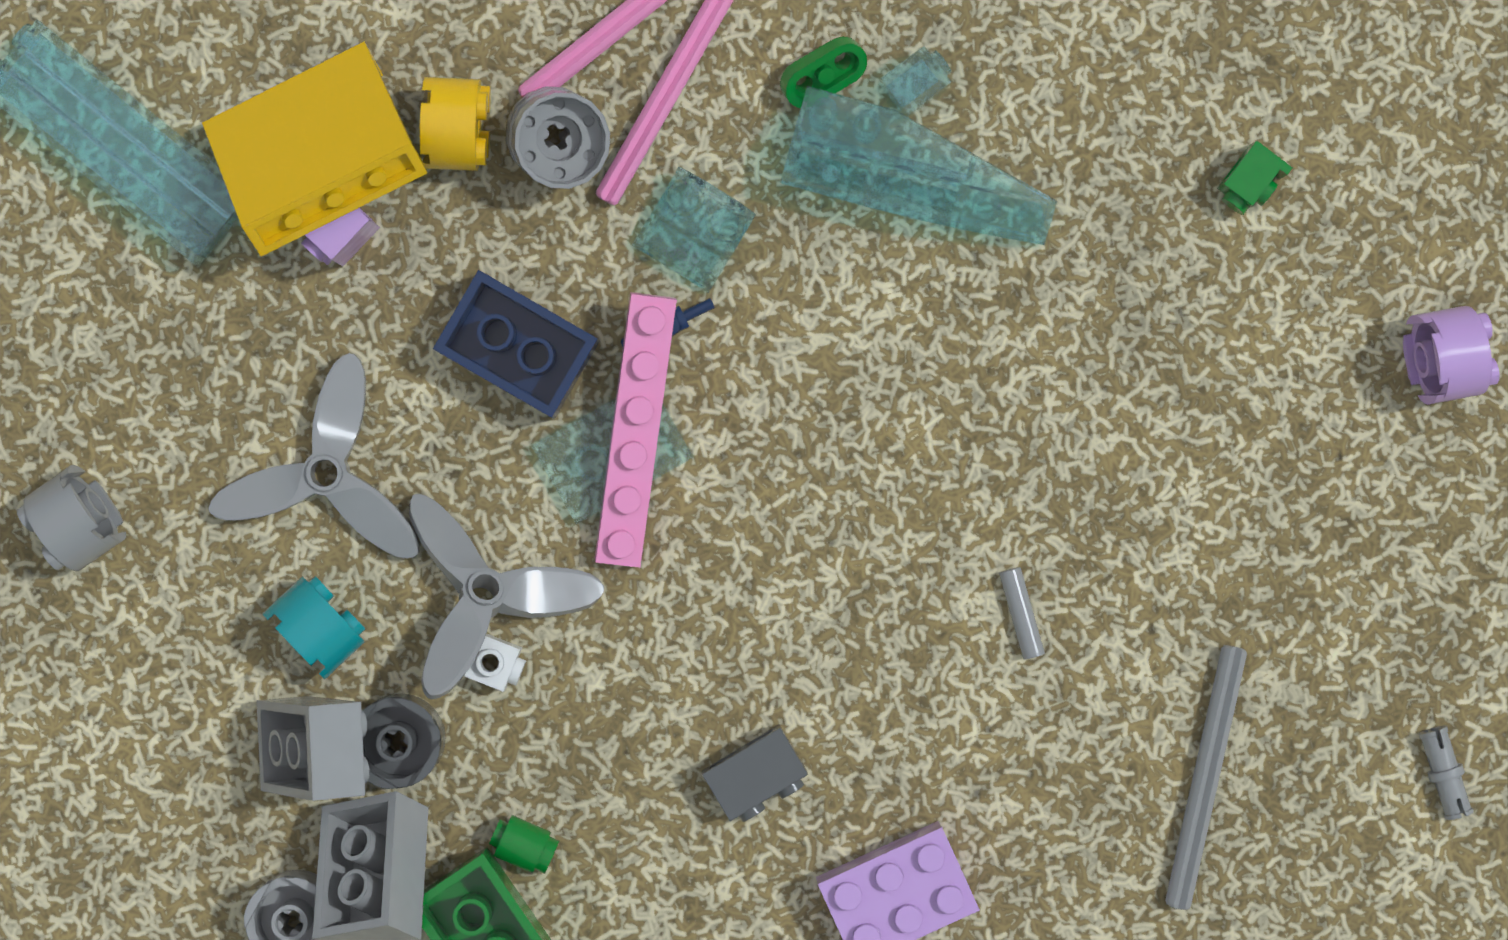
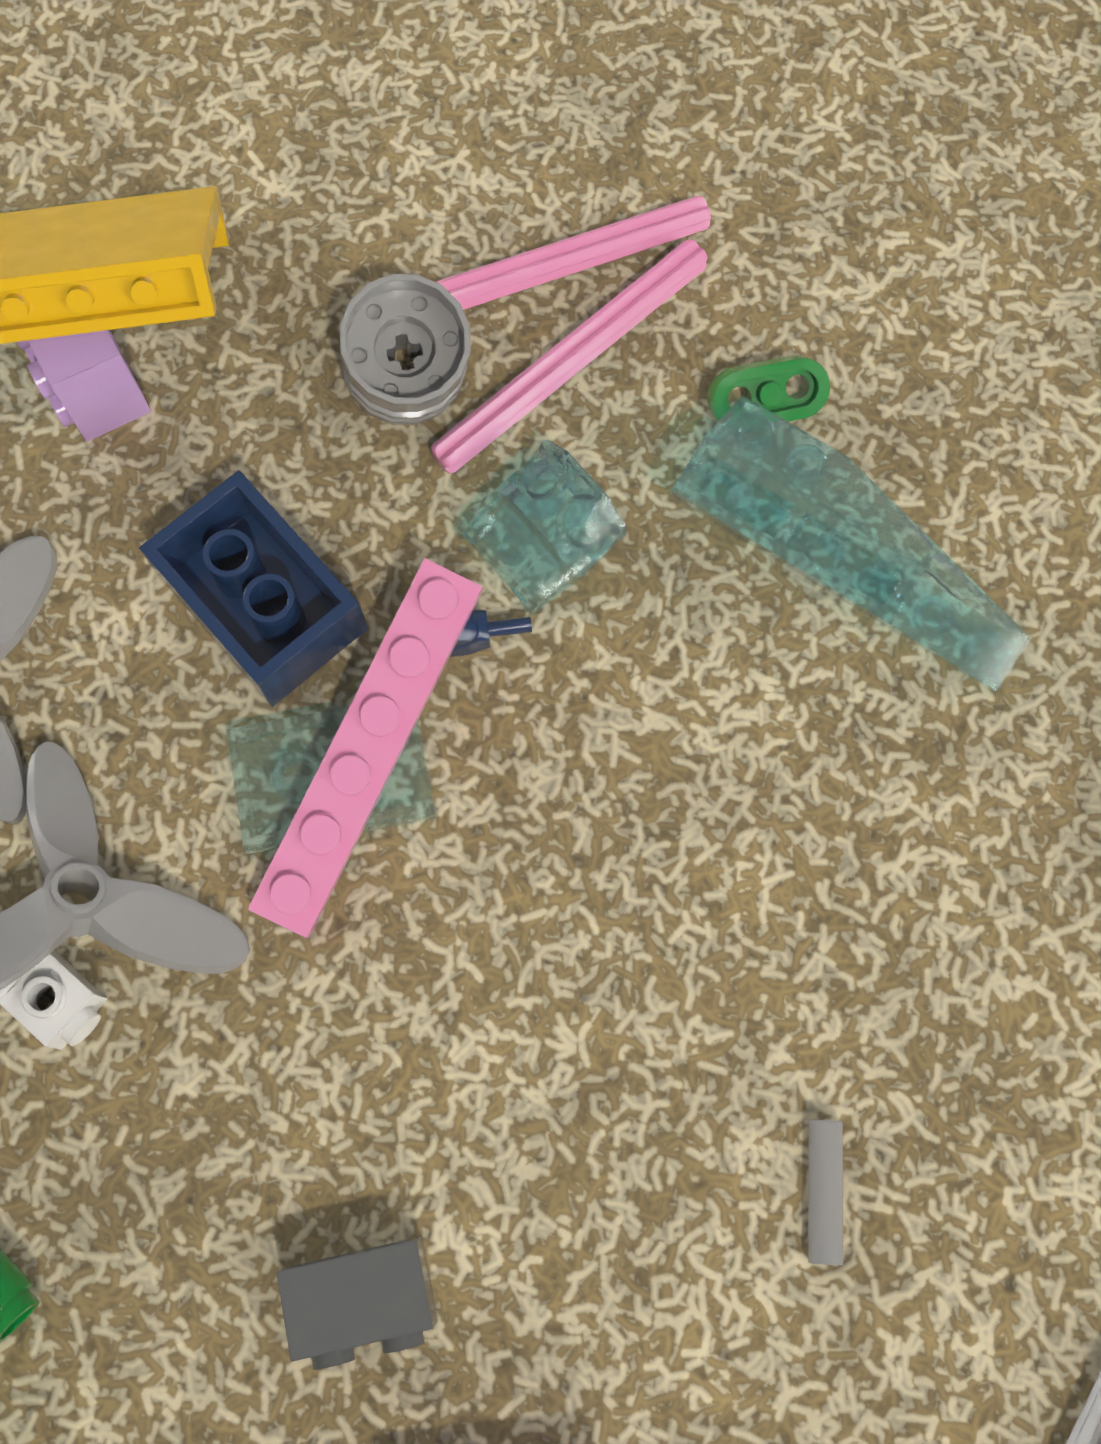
camera: 15 degrees right, 15 degrees down
(453, 124) = (282, 301): yellow brick -> none
(916, 81) = (885, 435): clear light blue brick -> none

